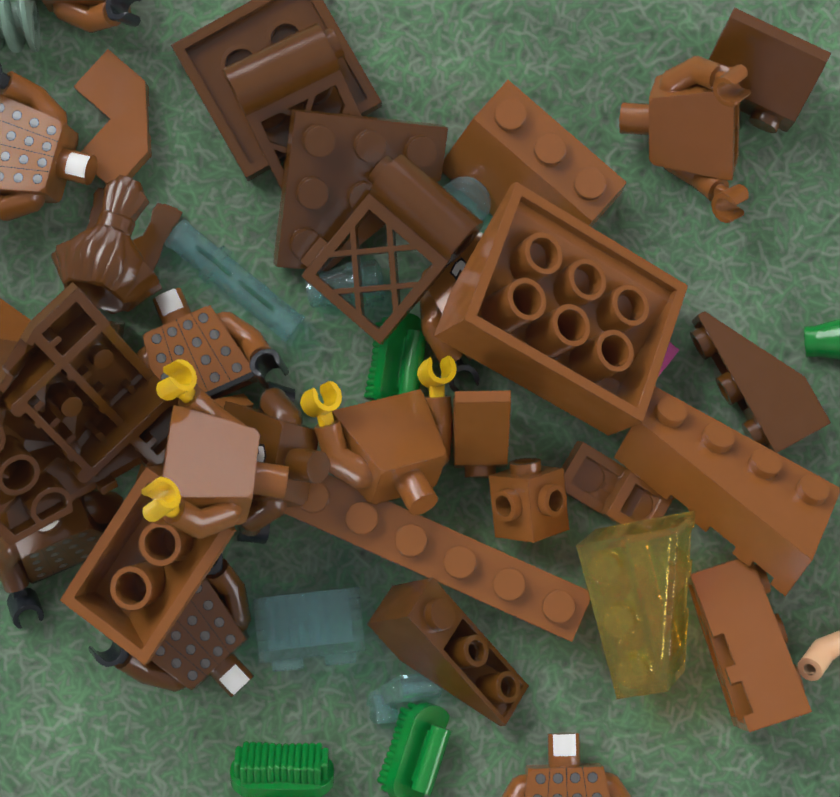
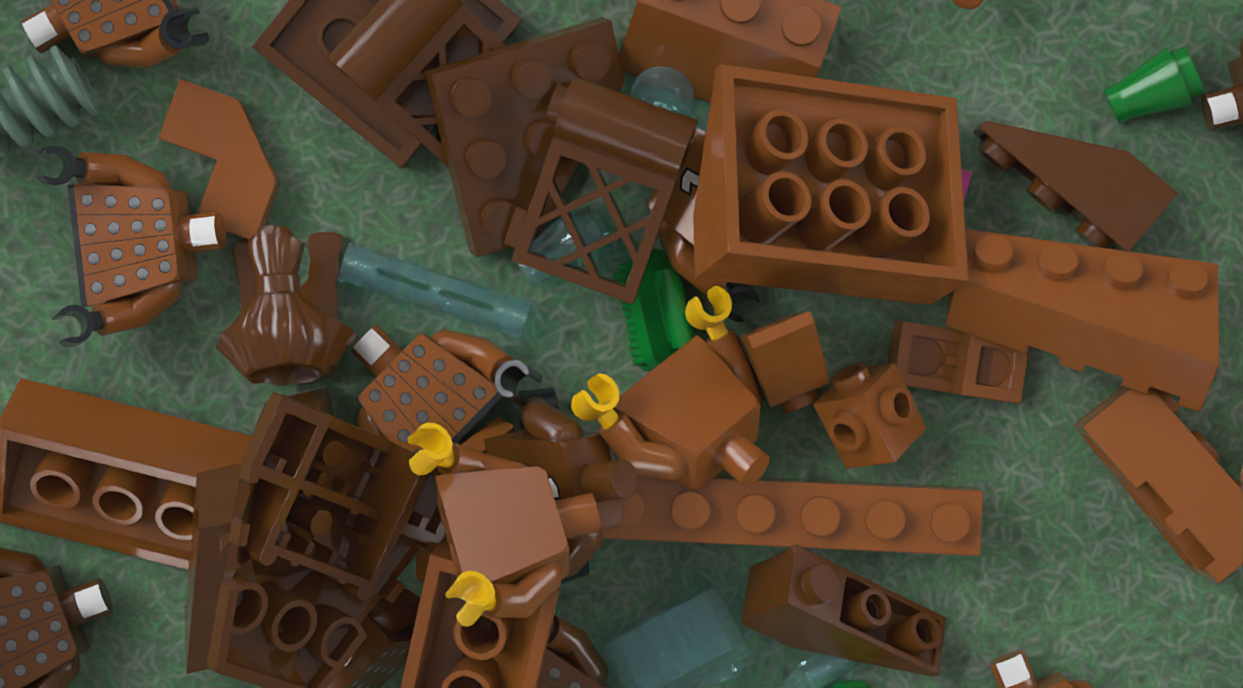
camera: 20 degrees left, 5 degrees up
(640, 599) = (1037, 476): clear yellow wedge -> none

